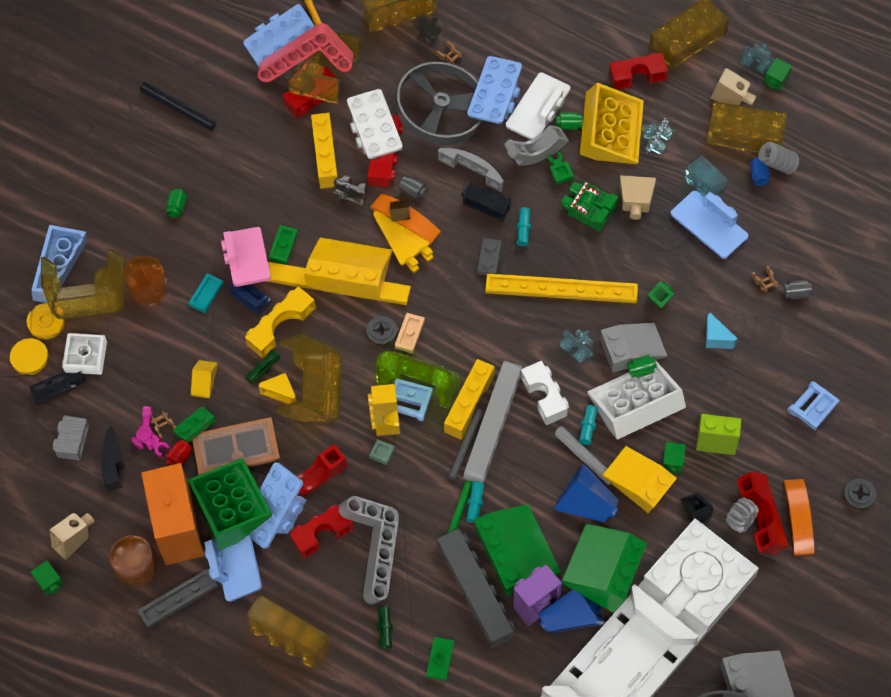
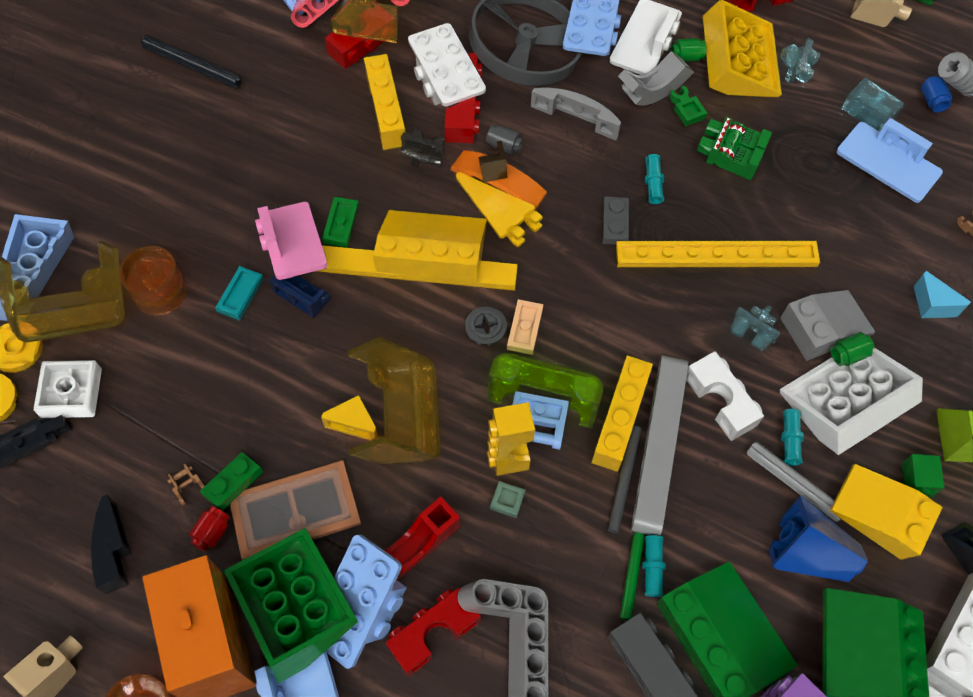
camera: 10 degrees left, 0 degrees up
(71, 437) = (47, 515): light grey brick -> none
(146, 436) = (161, 503): dark pink piece -> none
(175, 203) = (192, 178): green brick -> none
(203, 378) = (241, 412): yellow slope -> none
(262, 367) = (325, 389): dark green pin -> none
(295, 306) = (364, 301): yellow arch -> none
(486, 201) = (601, 151): black window -> none
(636, 194) = (791, 130): tan torso -> none
(660, 294) = (853, 252): green brick -> none
(745, 127) = (905, 44): clear yellow brick -> none

